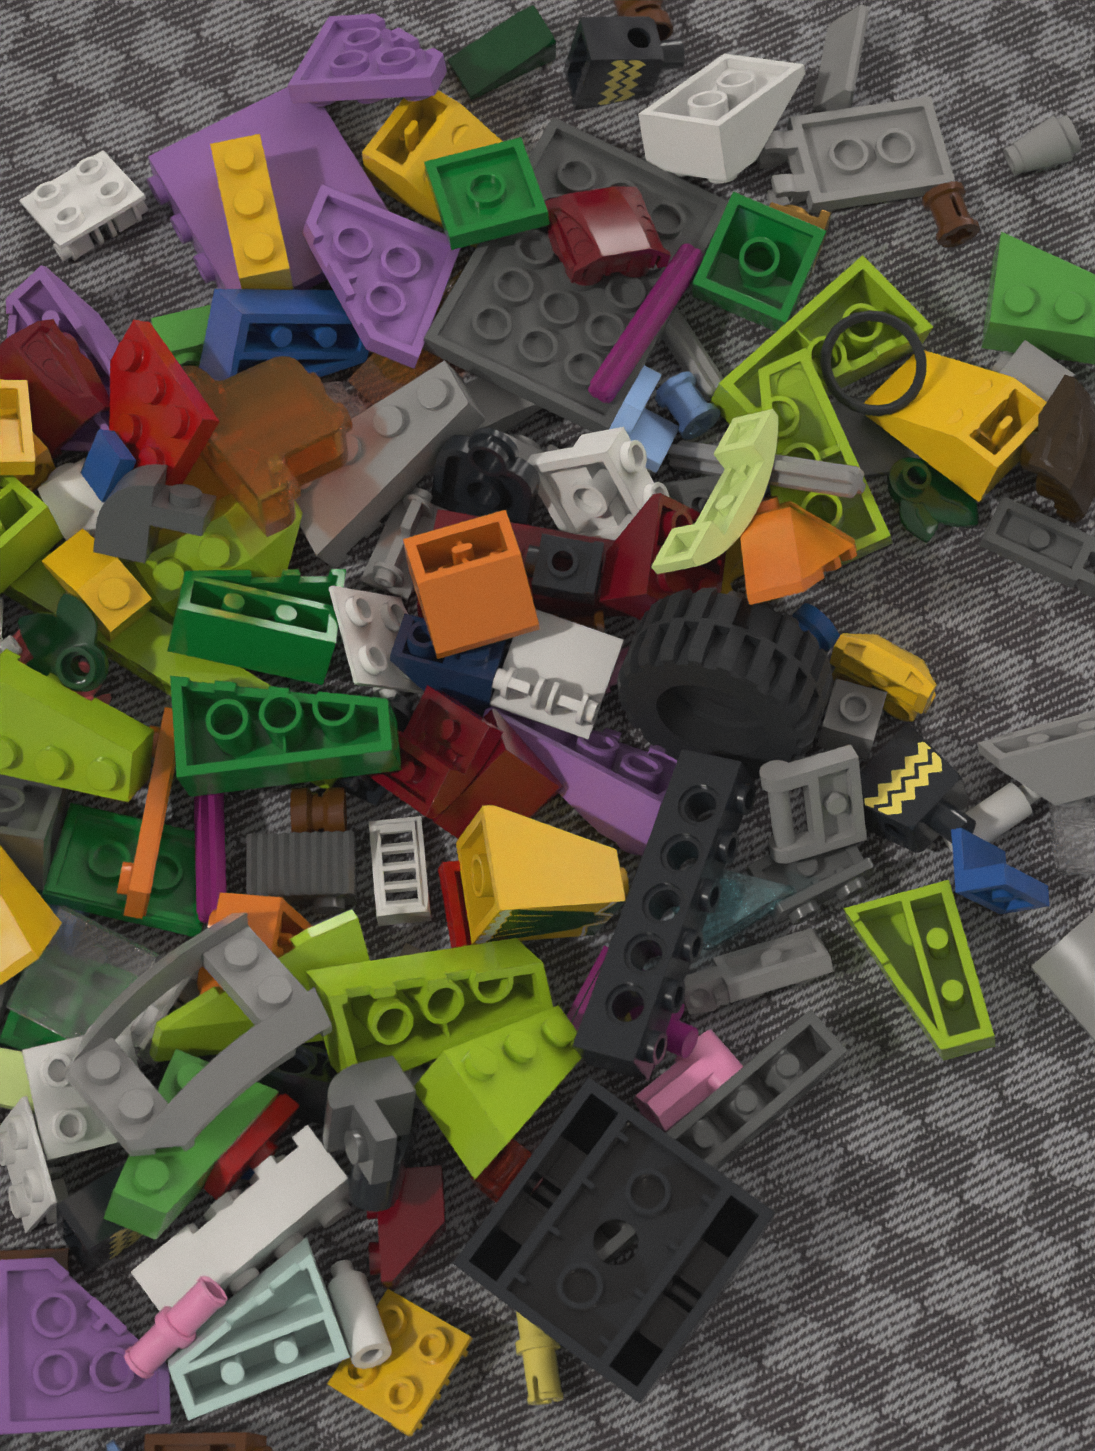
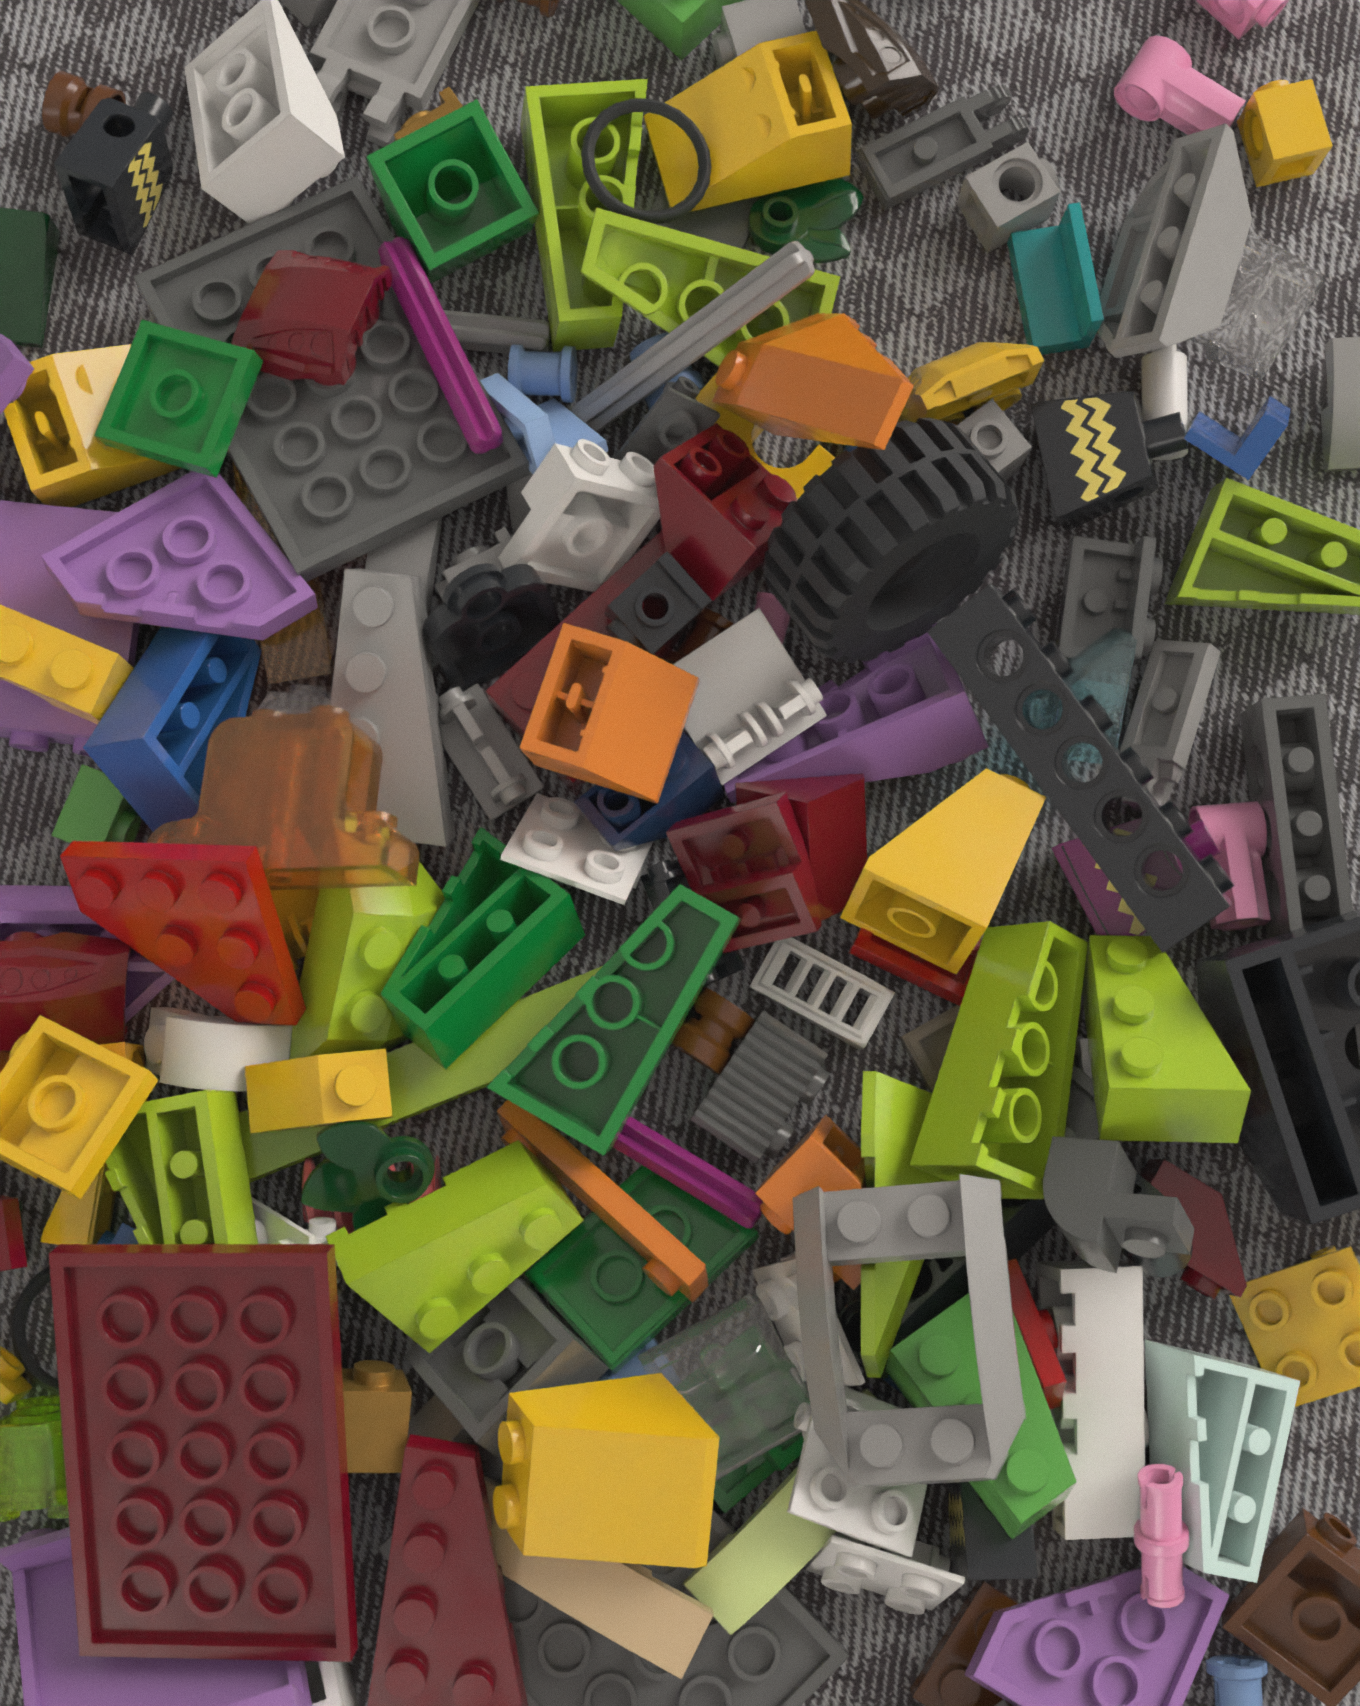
camera: 60 degrees left, 10 degrees up
(106, 463) = (202, 994): blue tile -> none
(141, 506) = (281, 988): dark grey brick -> none
(358, 1316) = (1247, 1340): white cylinder -> none
(747, 460) = (711, 392): yellowish green slope -> none
(831, 803) = (1073, 530): light grey plate -> none
(1012, 689) = (1056, 284): none -> teal panel
(1049, 595) = (994, 215): none -> light grey brick

